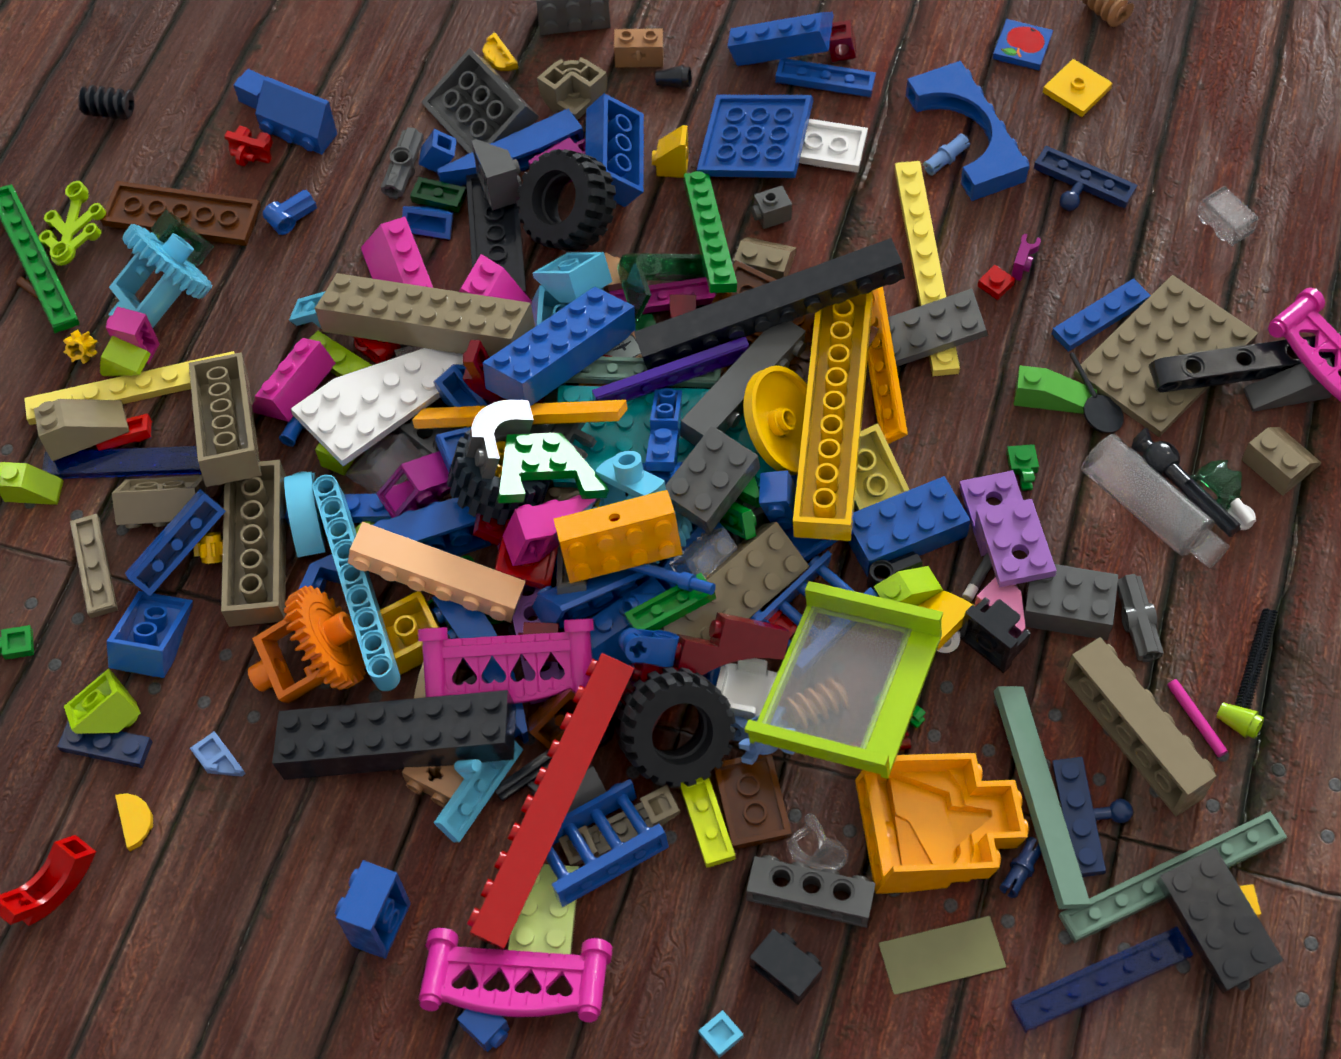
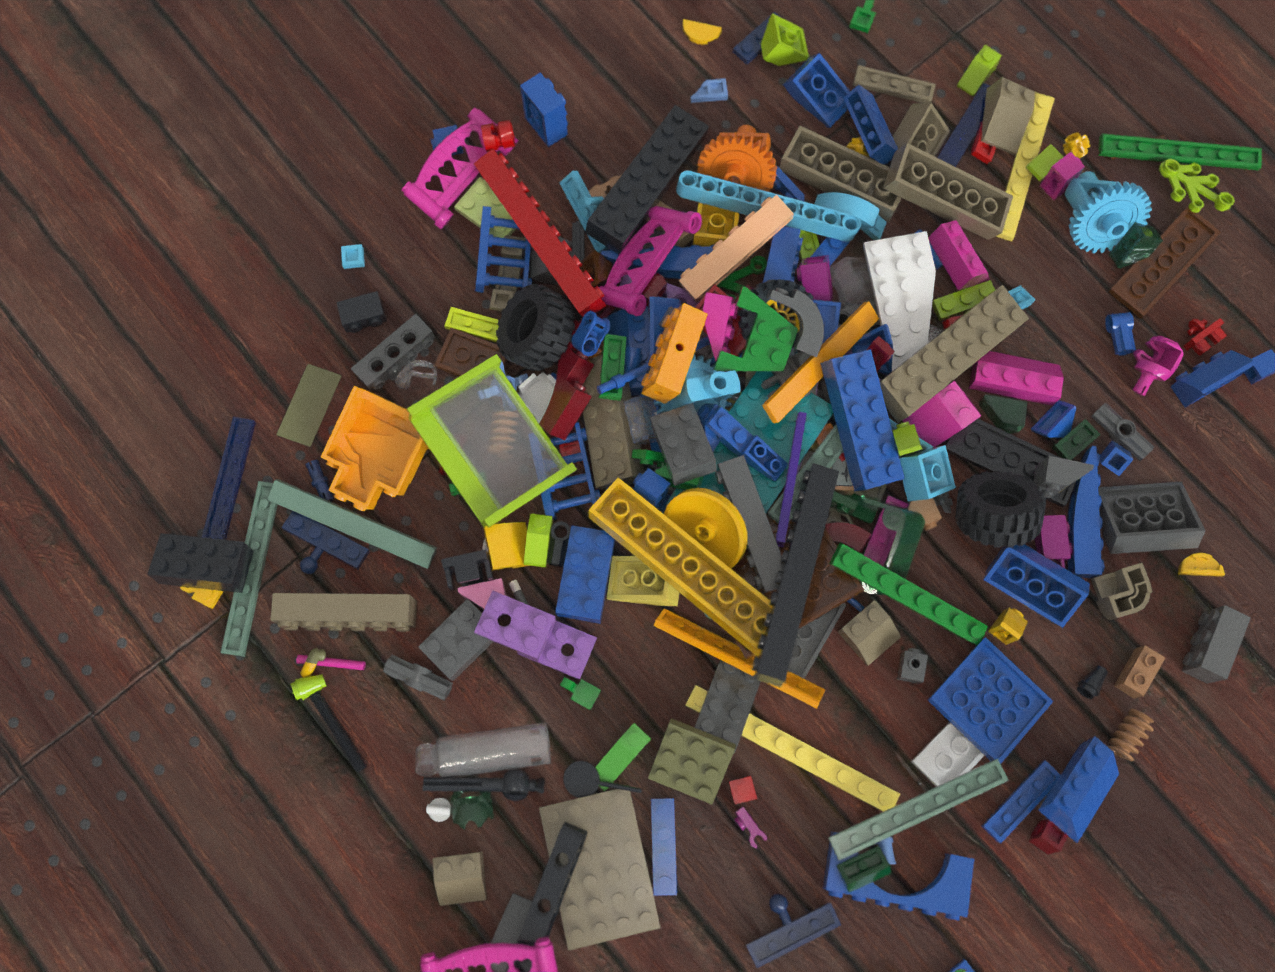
camera: 120 degrees right, 15 degrees up
(307, 164) = (1160, 366): none -> dark pink piece
(439, 931) = (498, 135): none -> red wheel
(449, 260) = (1005, 412): none -> clear green slope
(555, 295) = (907, 439): none -> lime slope
(702, 29) = (1130, 734): none -> medium nougat piece
(903, 132) = (917, 809): none -> sand green tile
(986, 146) = (864, 869): none -> dark green slope
(1010, 324) = (692, 761): none -> olive plate
(1214, 728) = (314, 656): none -> arm

